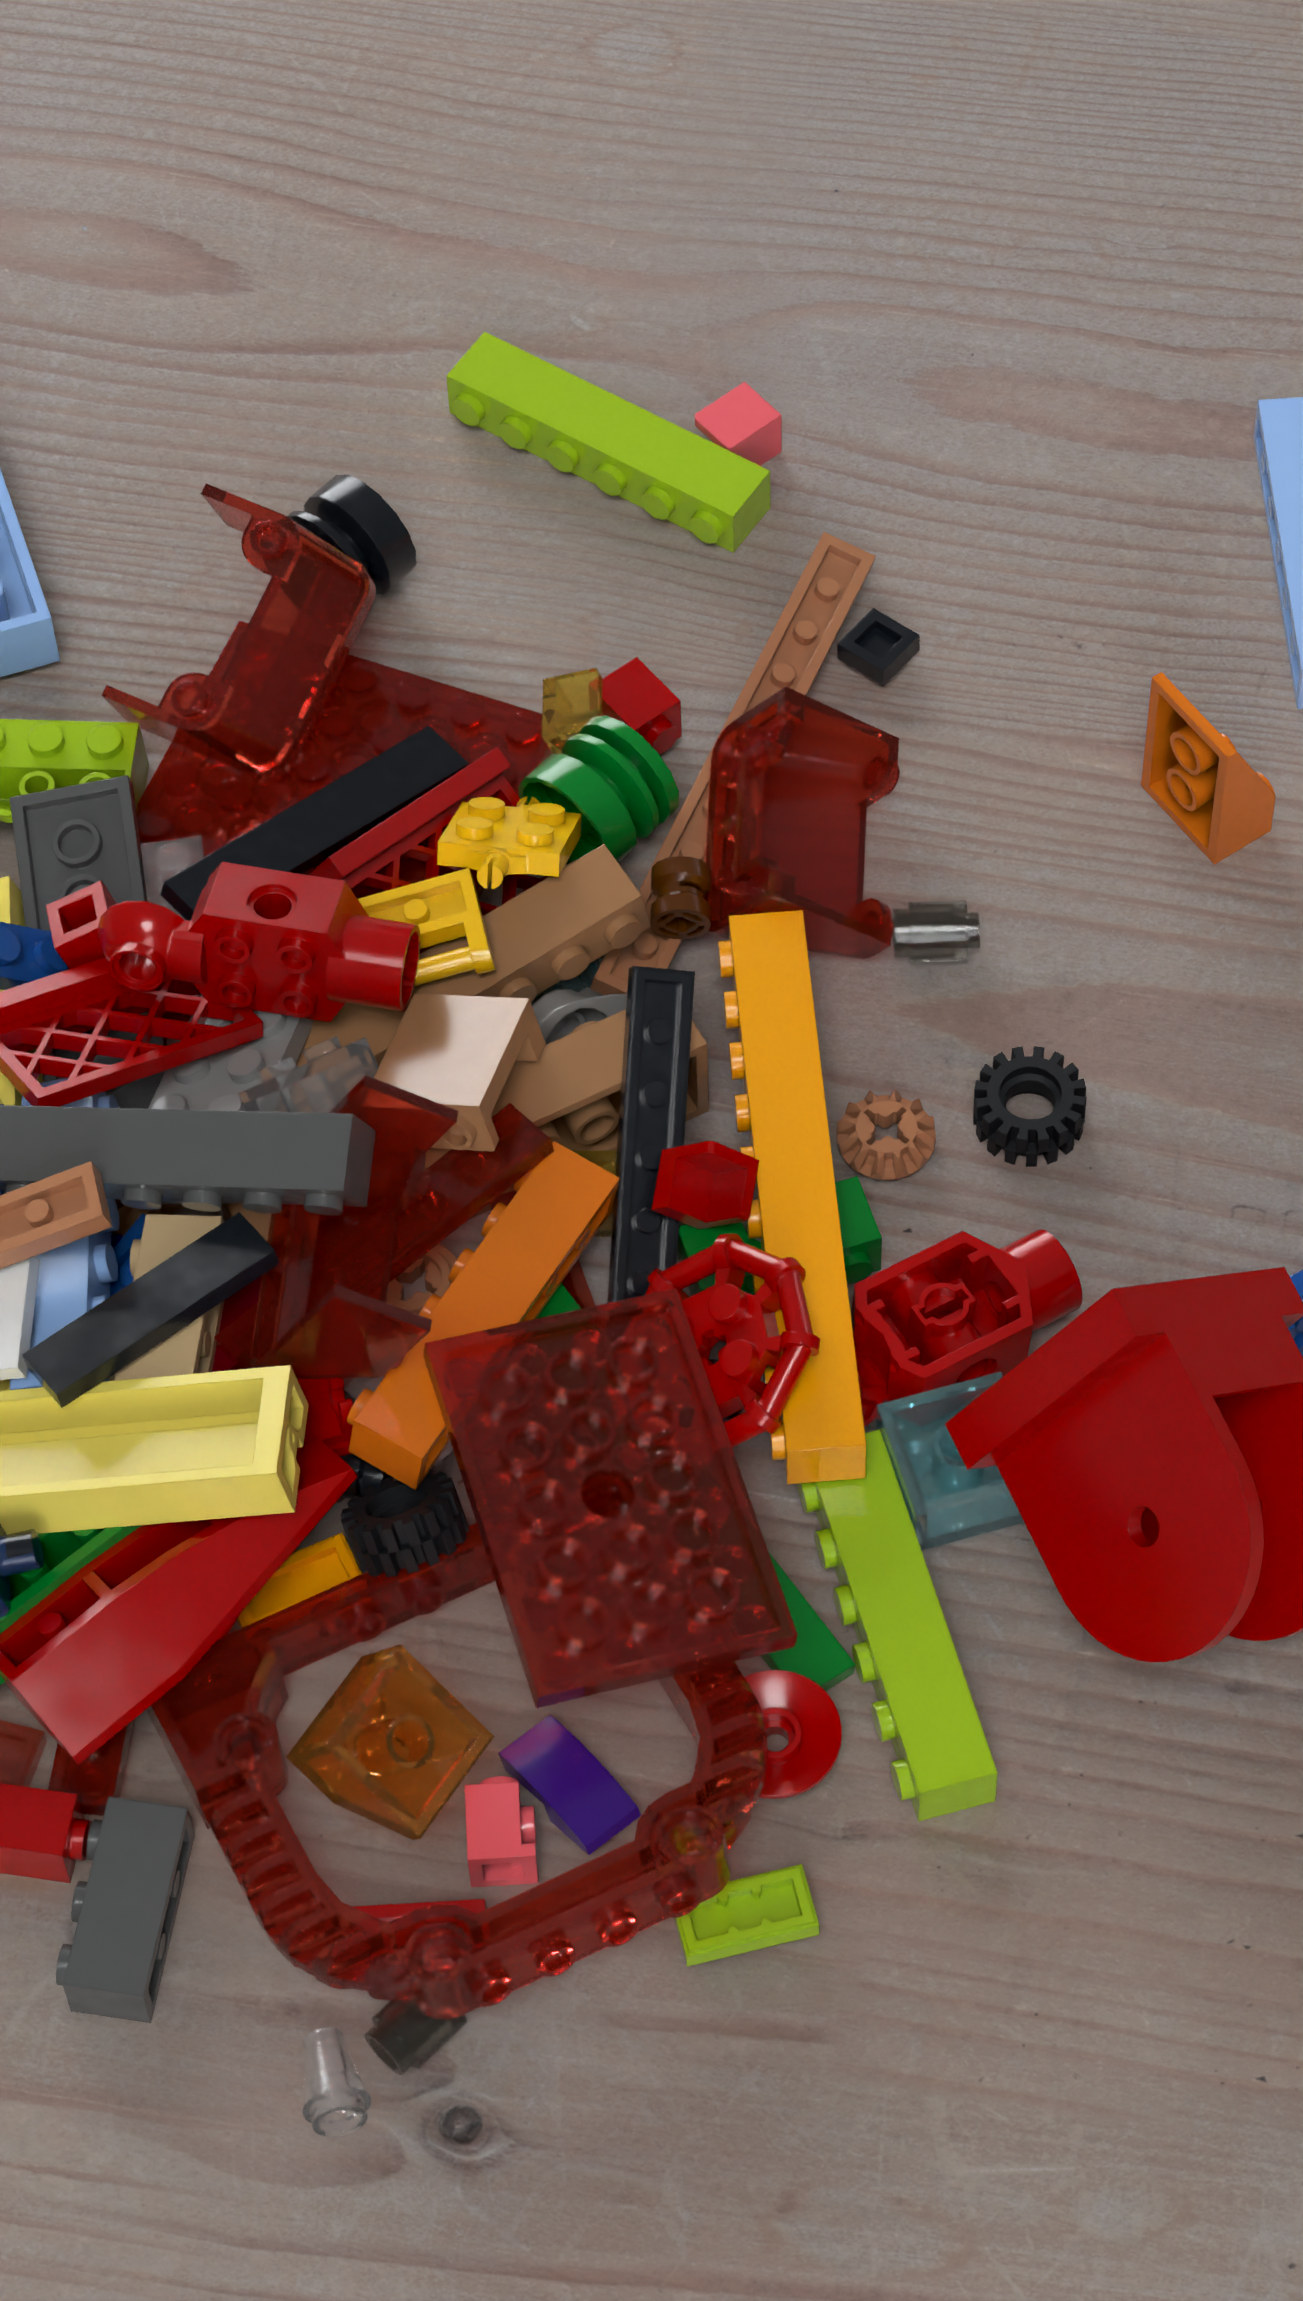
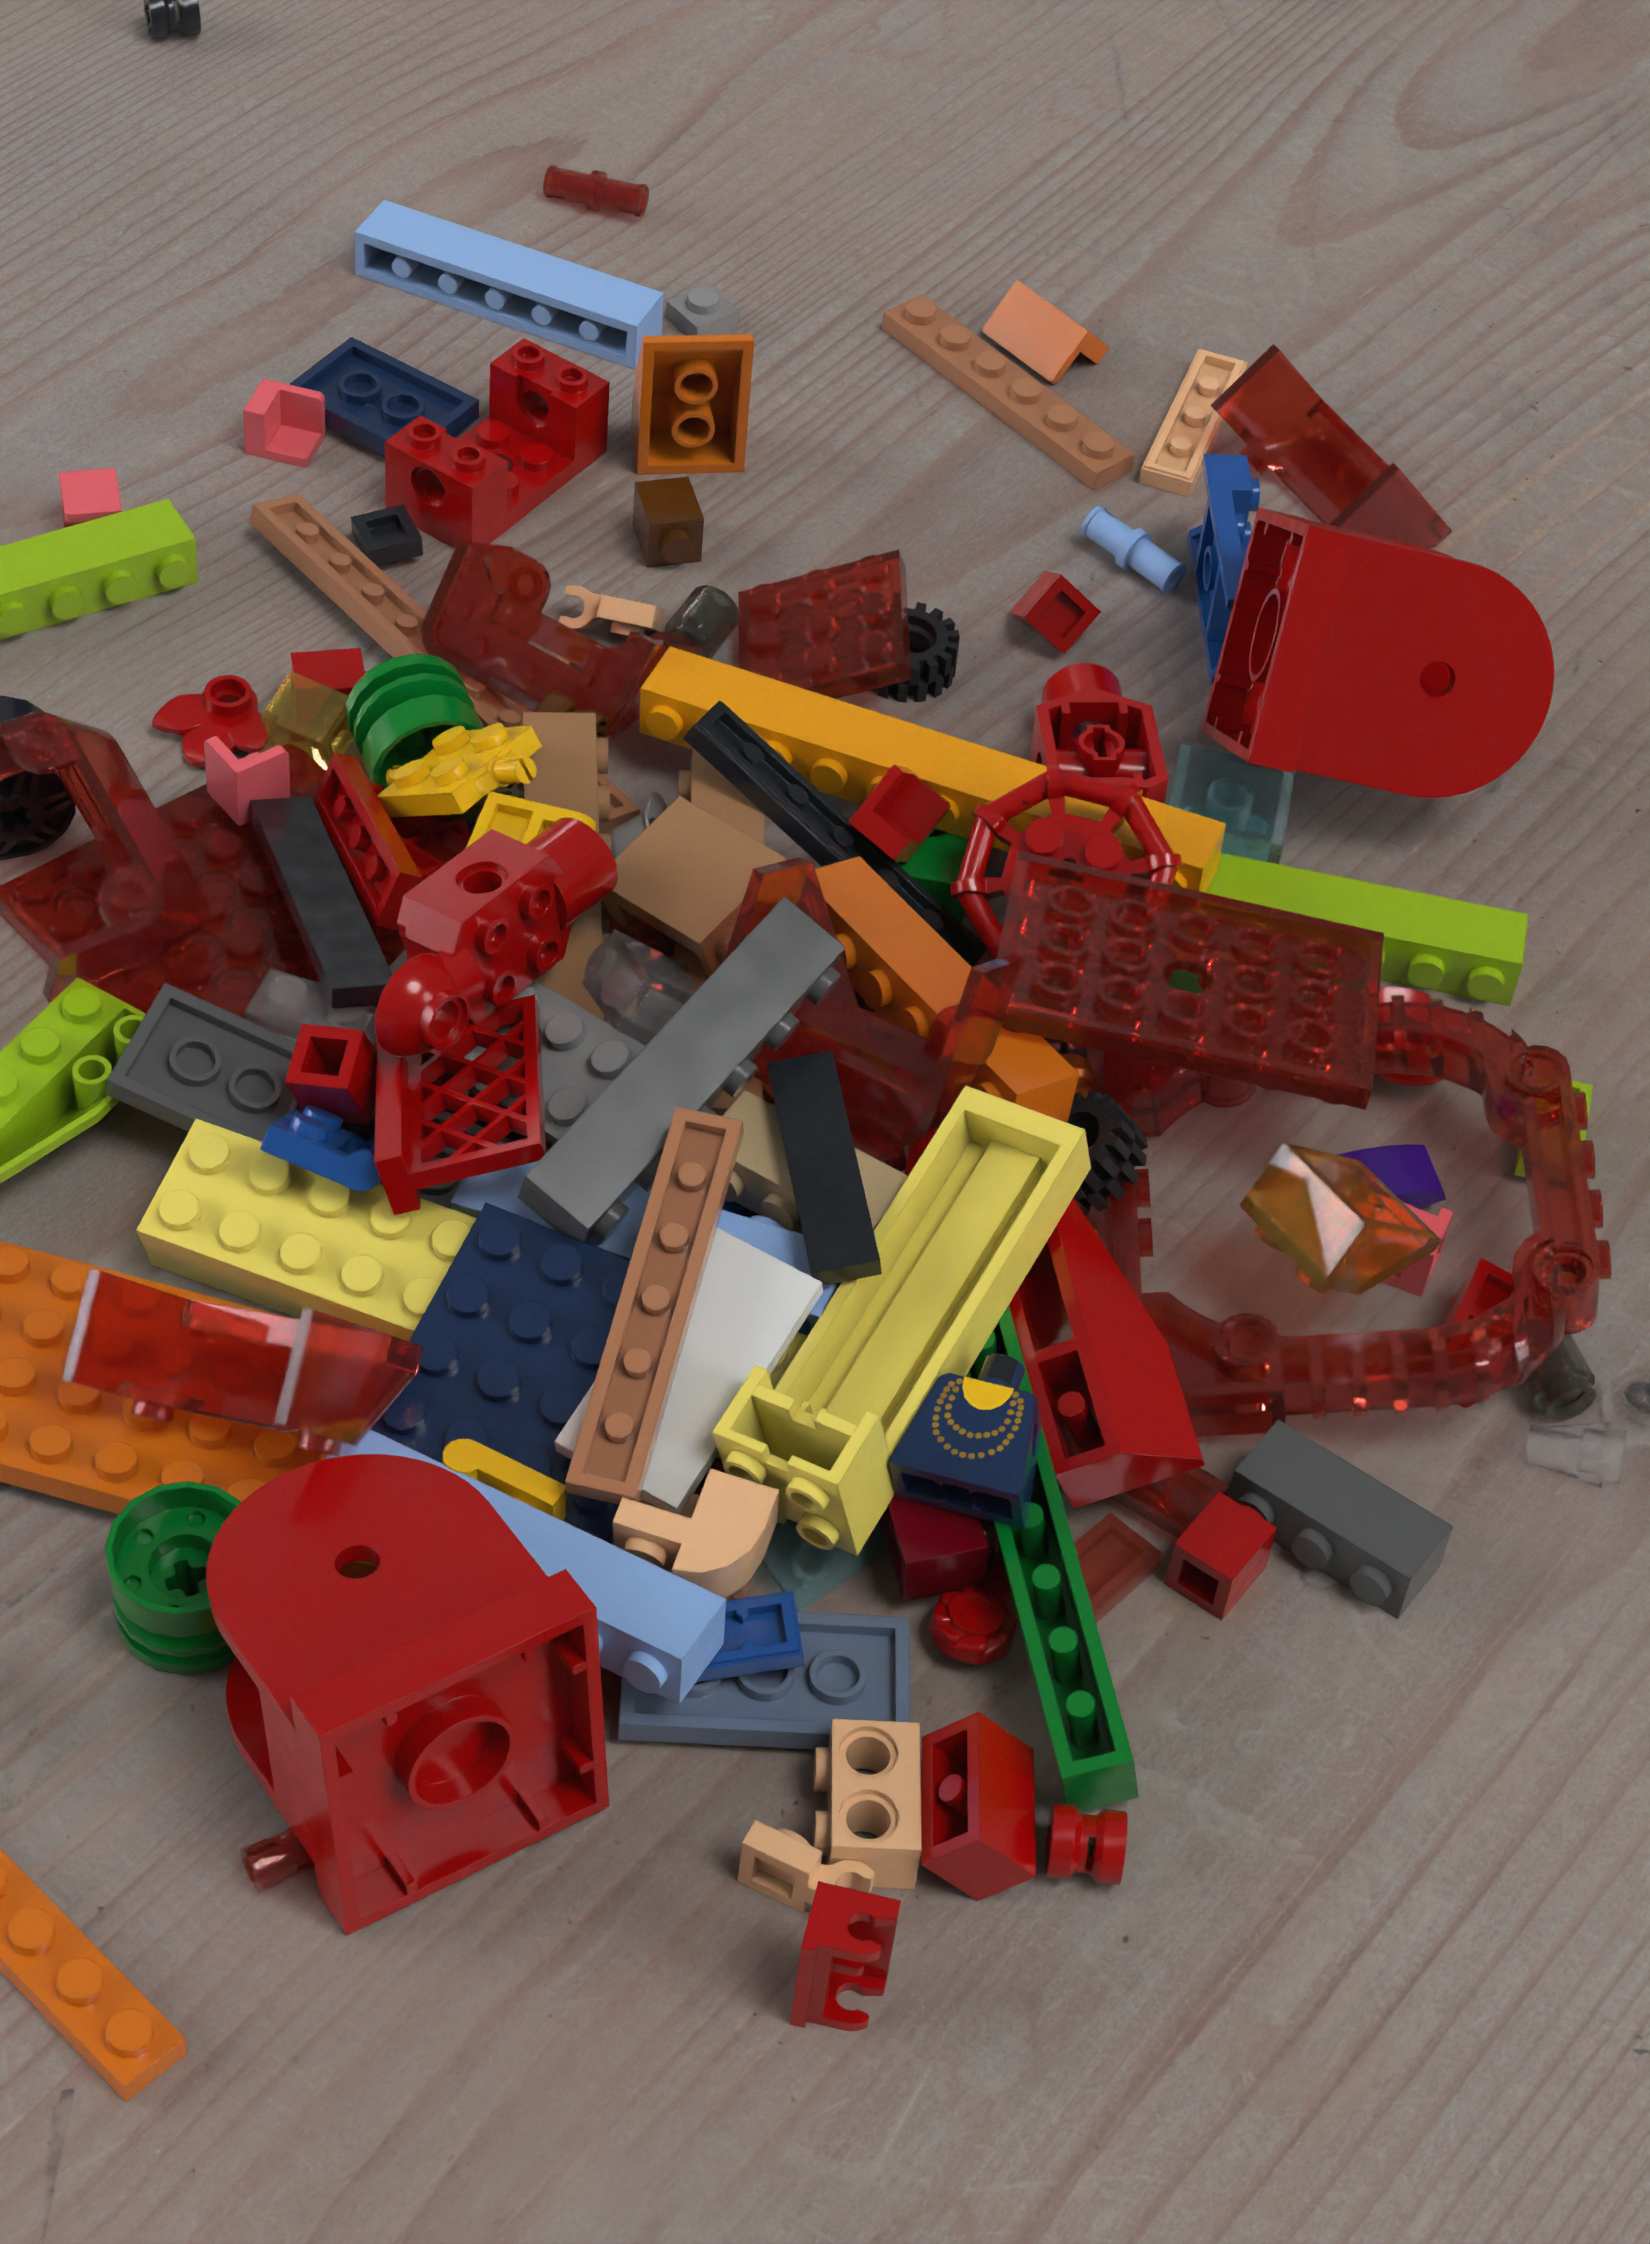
camera: 70 degrees left, 10 degrees down
(452, 710) = (238, 781): none -> coral panel
(549, 652) = (223, 710): none -> red plate
(905, 866) = (623, 613): none -> light nougat plate
(967, 496) = (284, 423): none -> coral panel
(979, 1028) = (830, 628): none -> clear red plate
(982, 669) = (539, 435): none -> red plate
(1060, 549) = (377, 395): none -> dark blue plate
(1060, 838) = (668, 521): none -> reddish brown brick
(1180, 1199) = (1055, 611): none -> red panel

